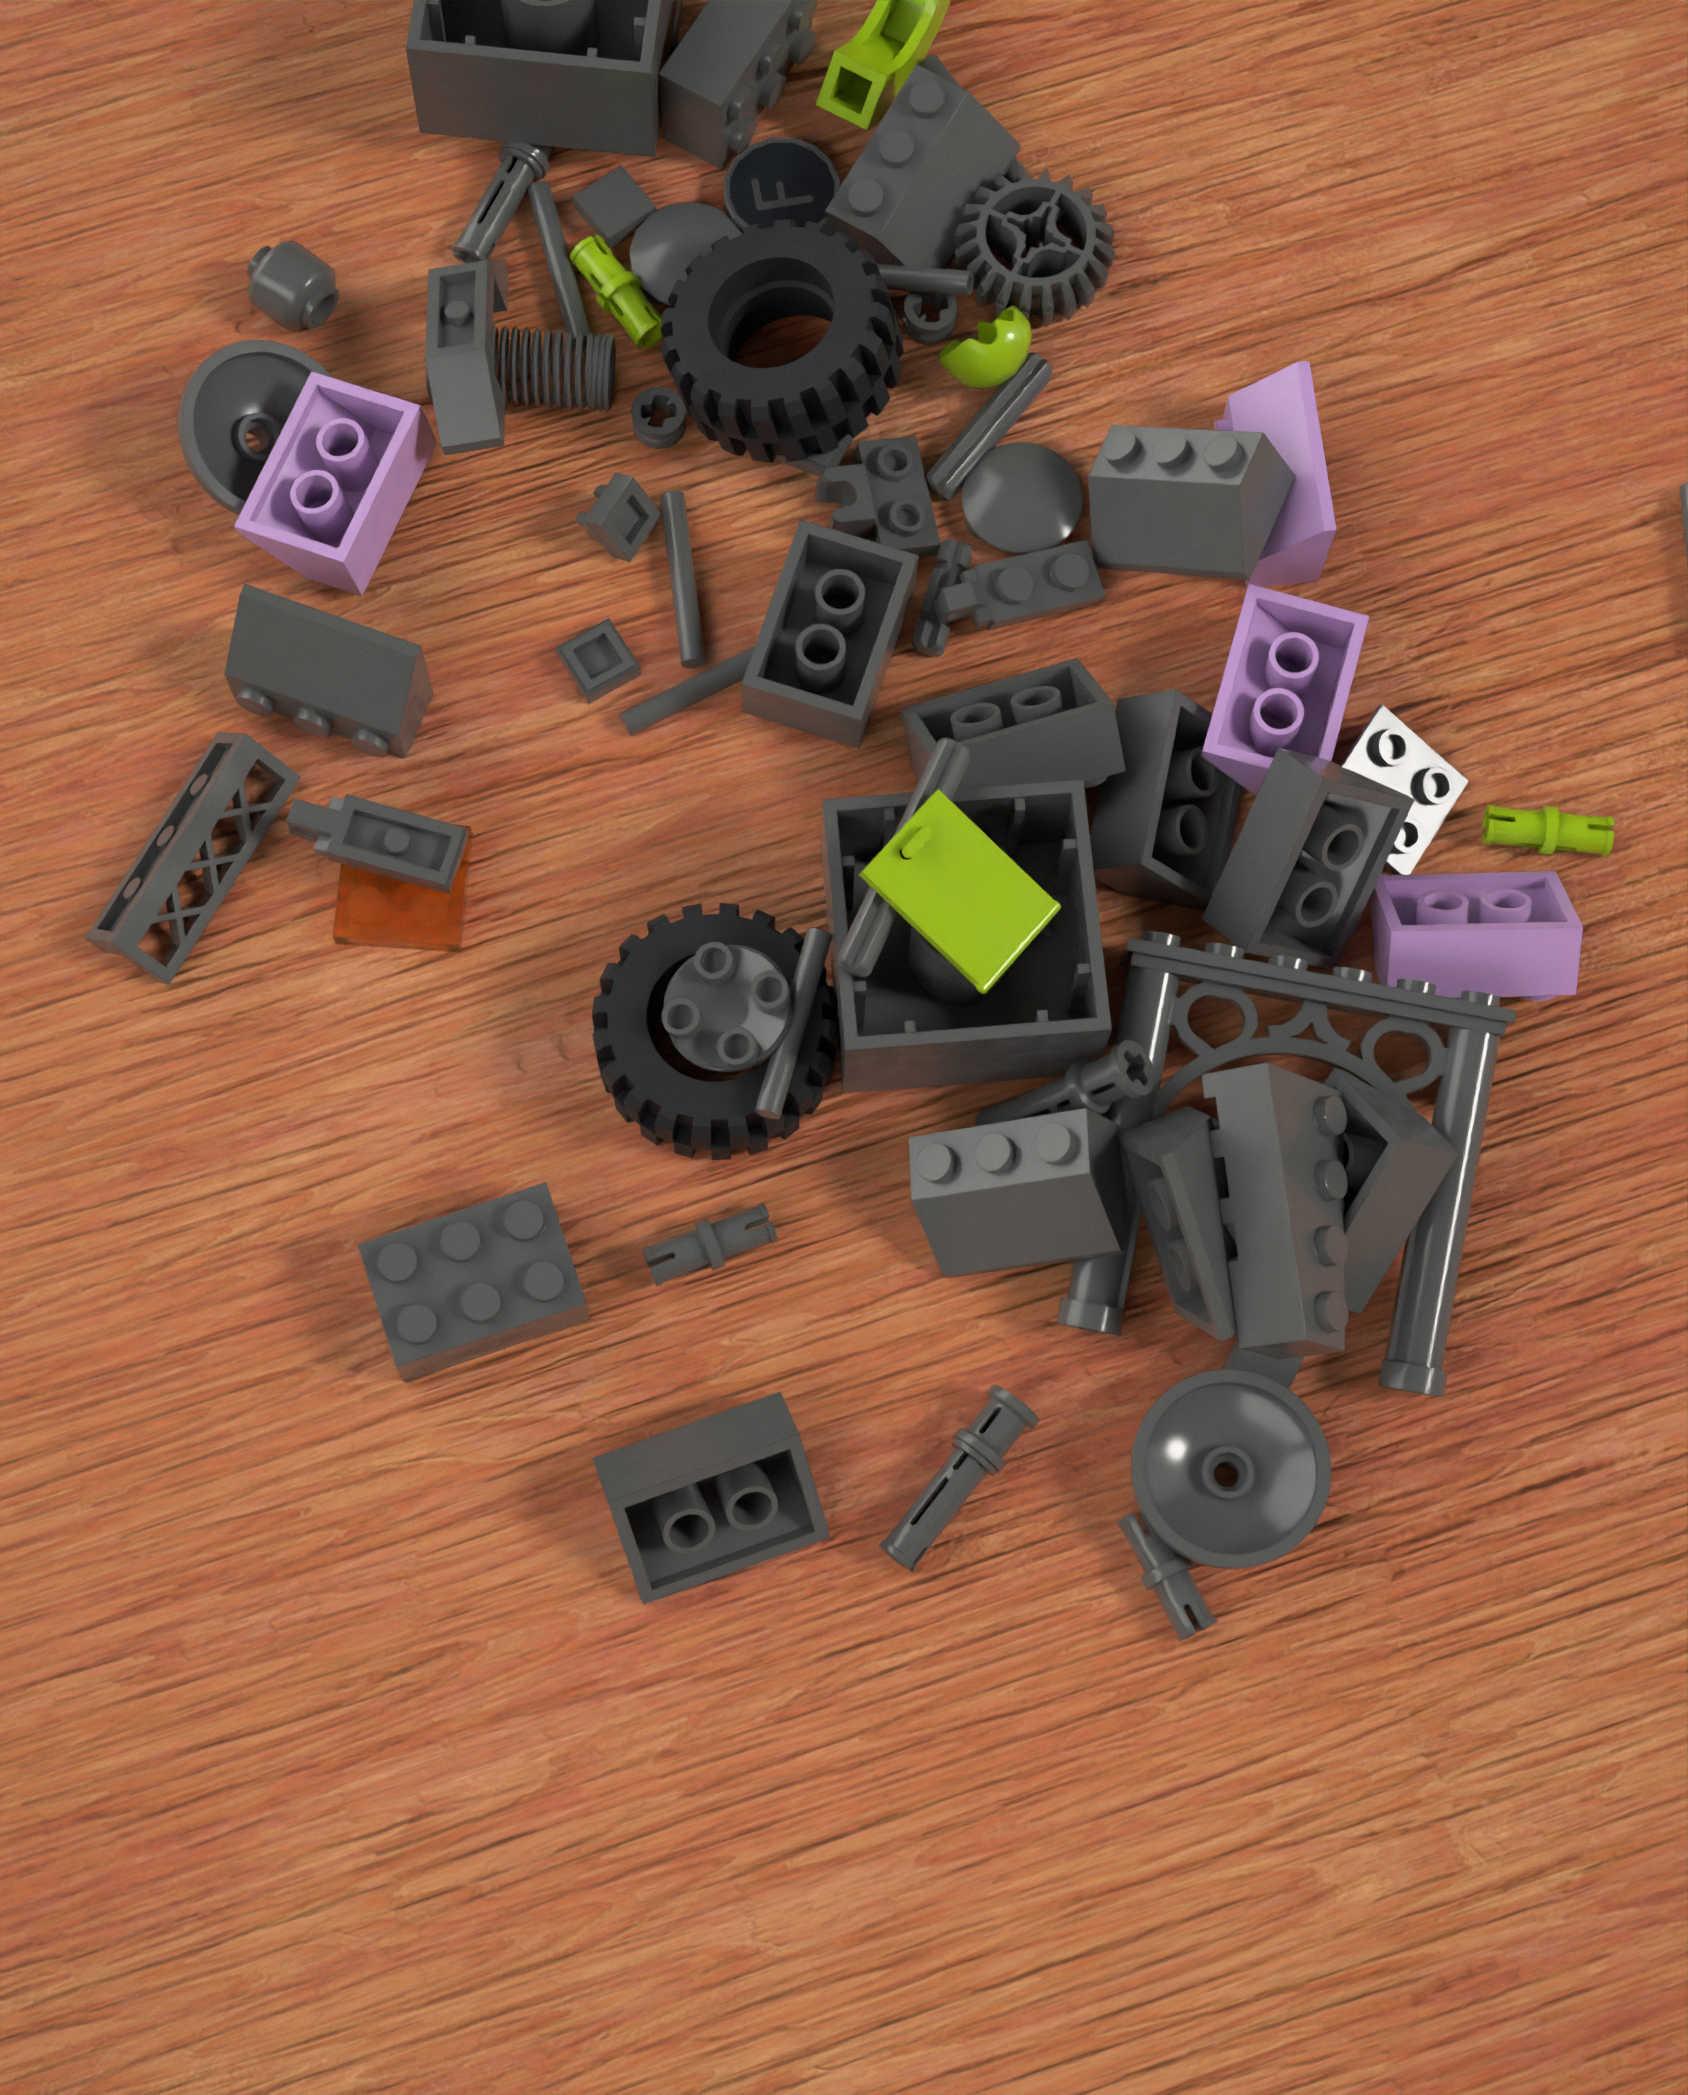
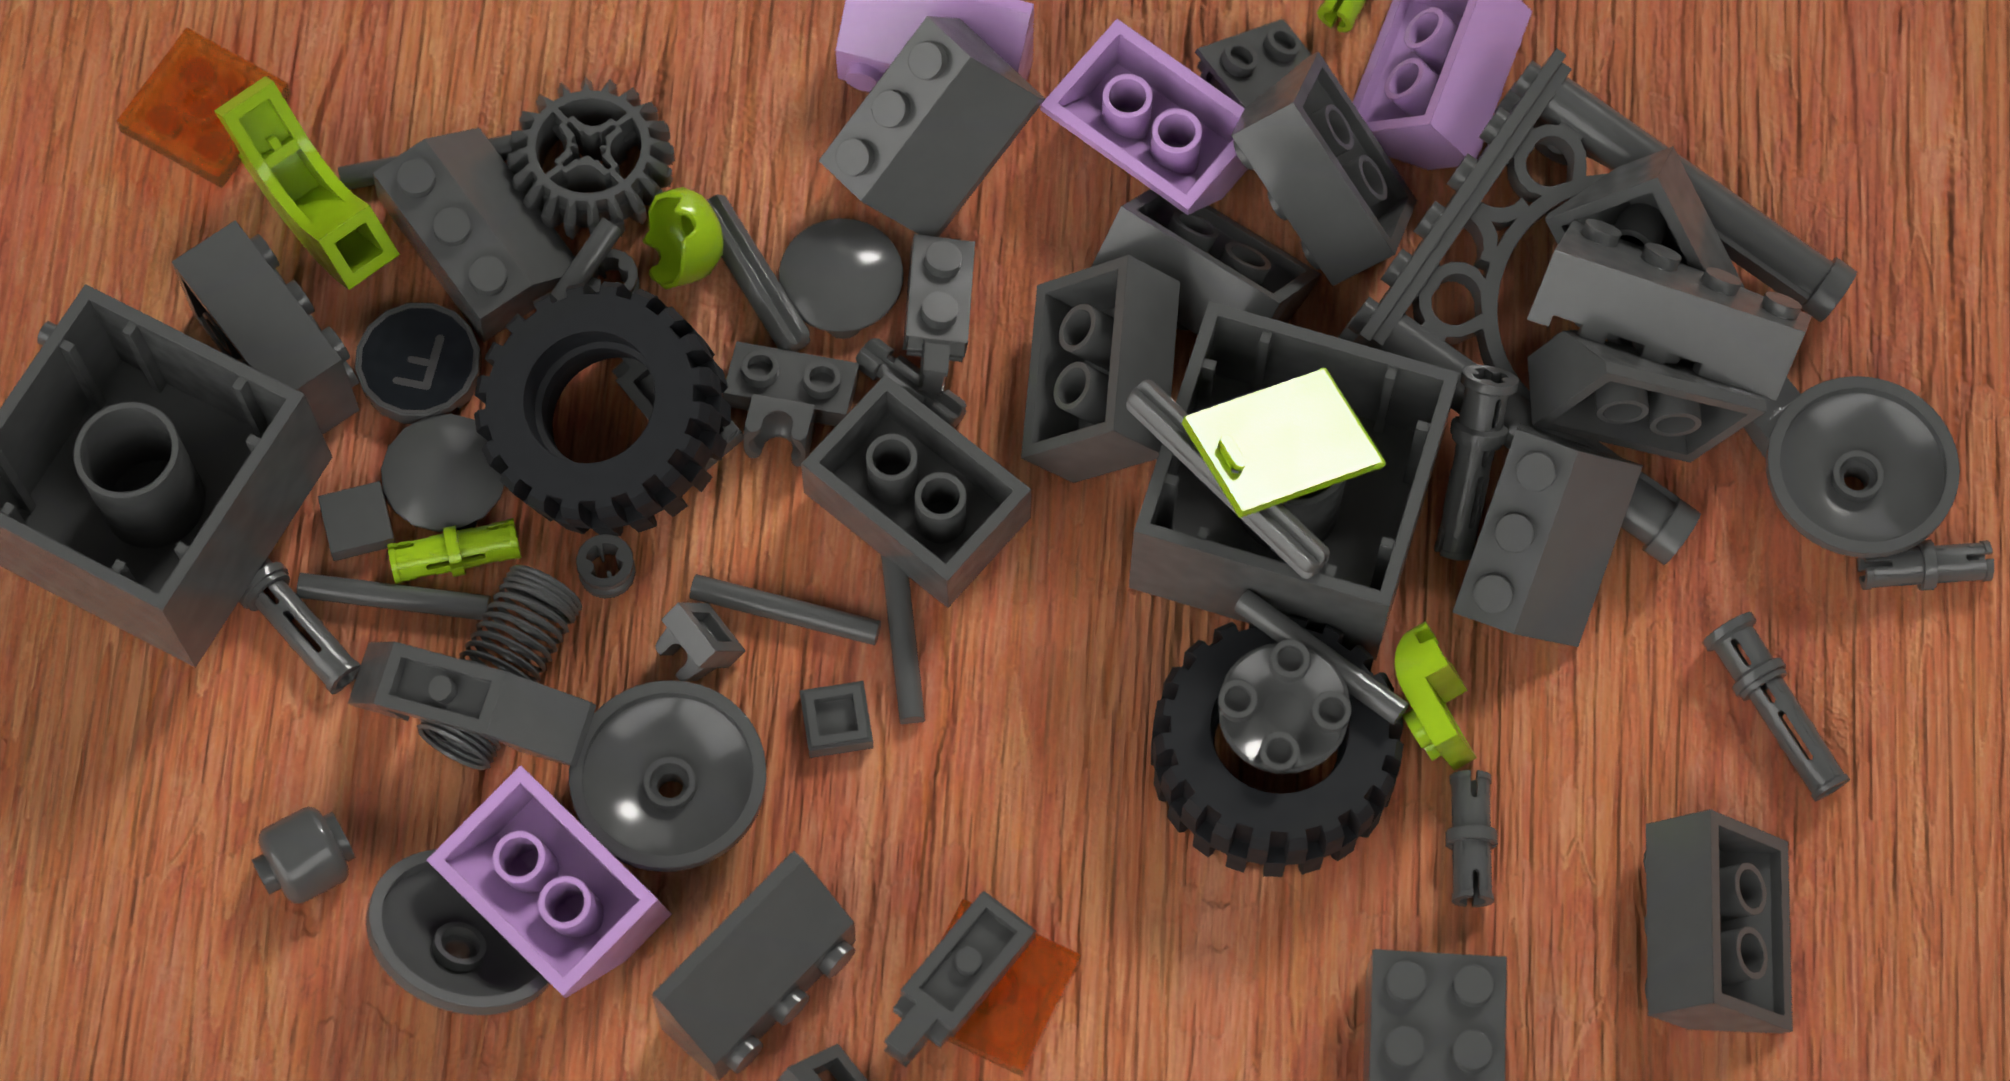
camera: 65 degrees left, 5 degrees down
(465, 504) = (659, 737): none -> dark grey dish
(813, 1146) = (1428, 685): none -> lime slope

